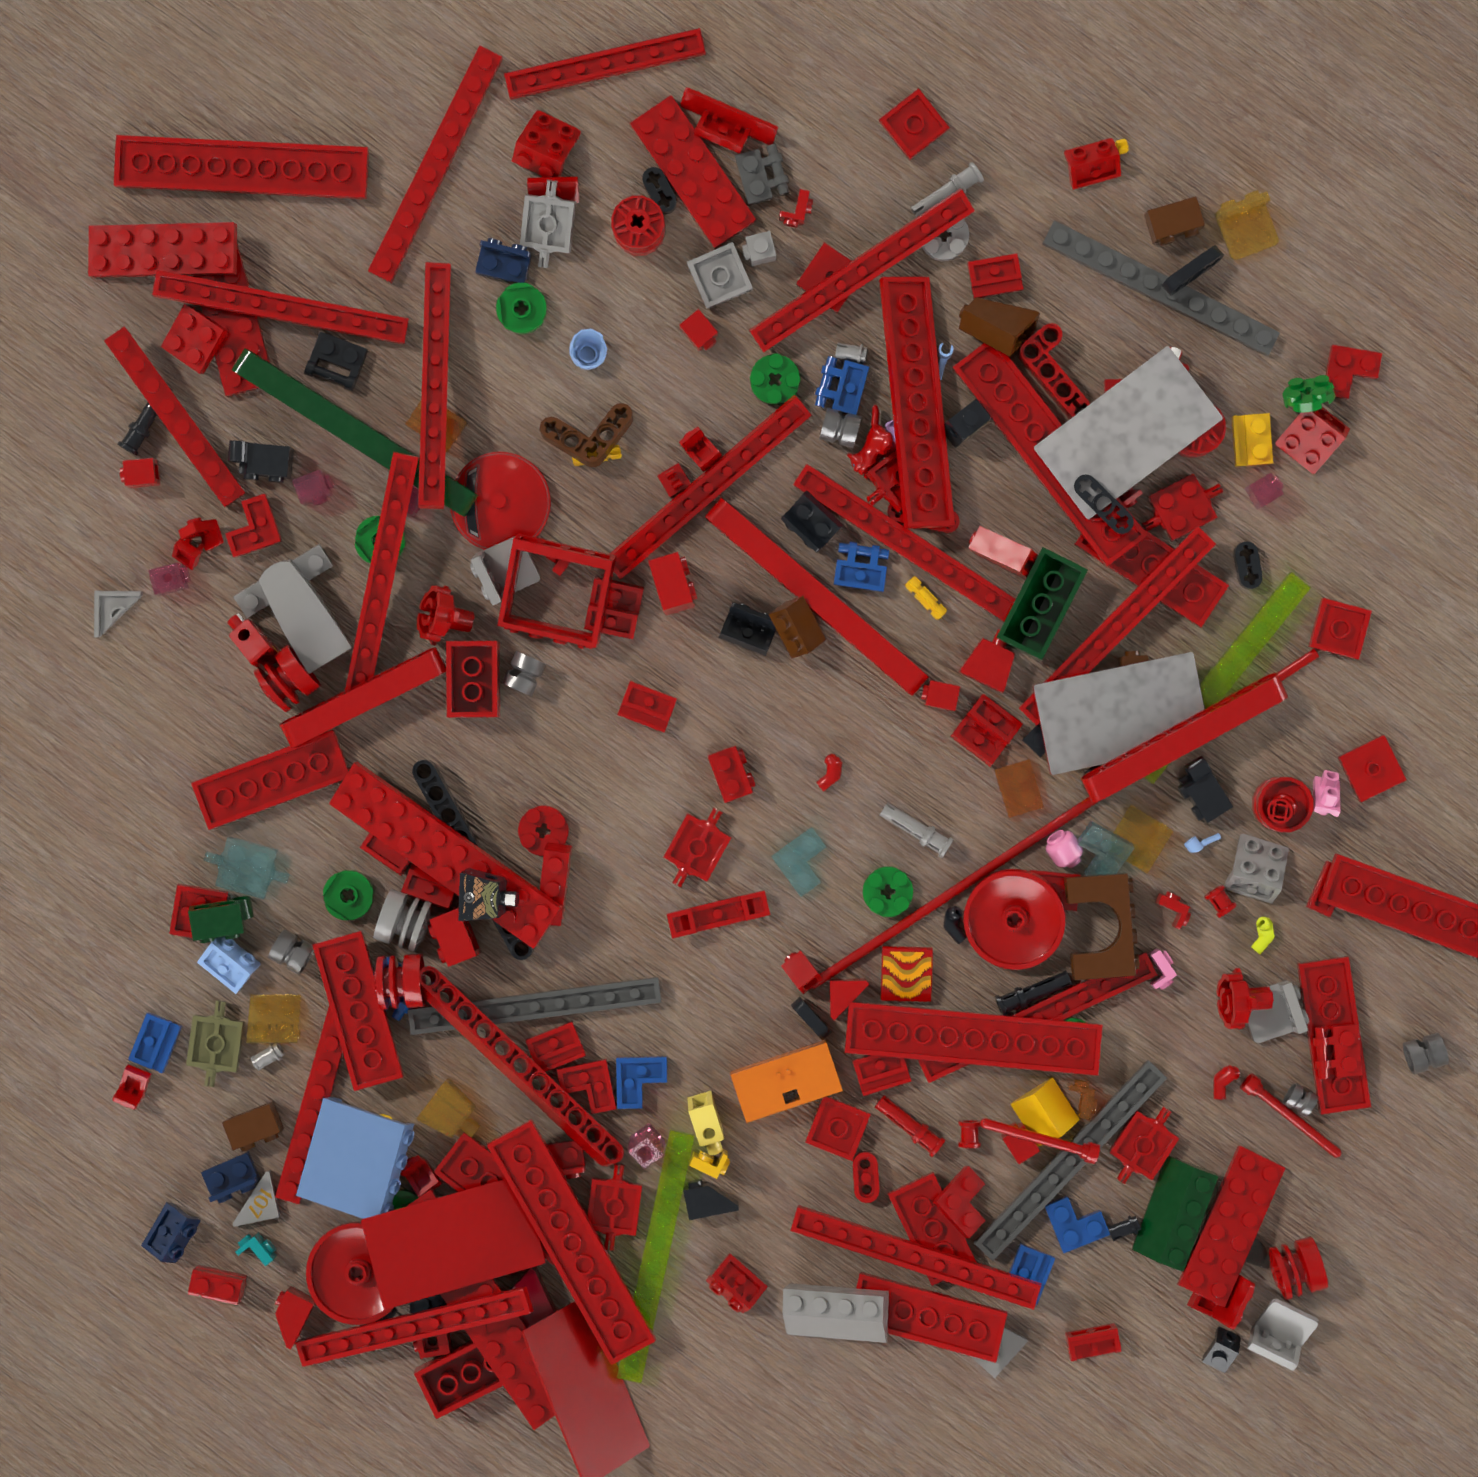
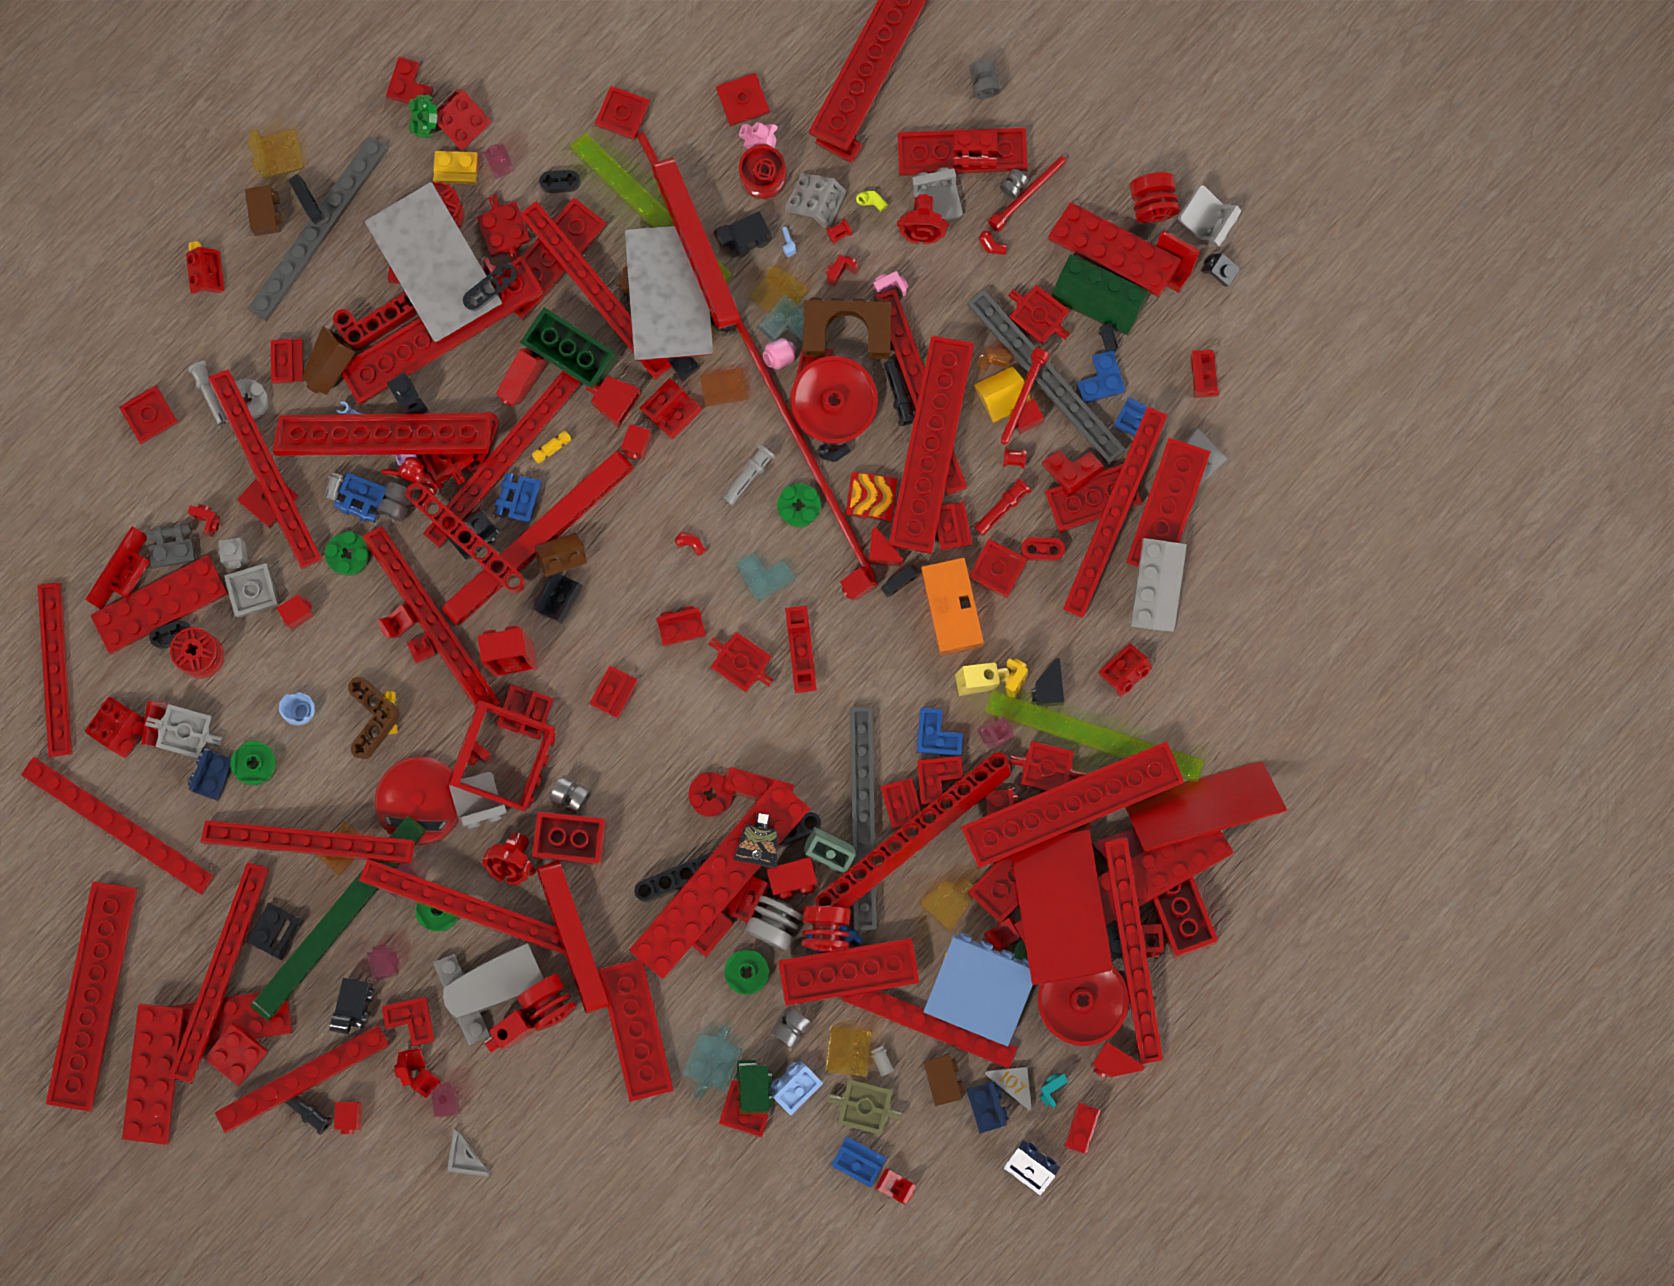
camera: 75 degrees left, 10 degrees down
(489, 974) = (829, 850): none -> sand green brick
(812, 508) = (460, 529): none -> red beam

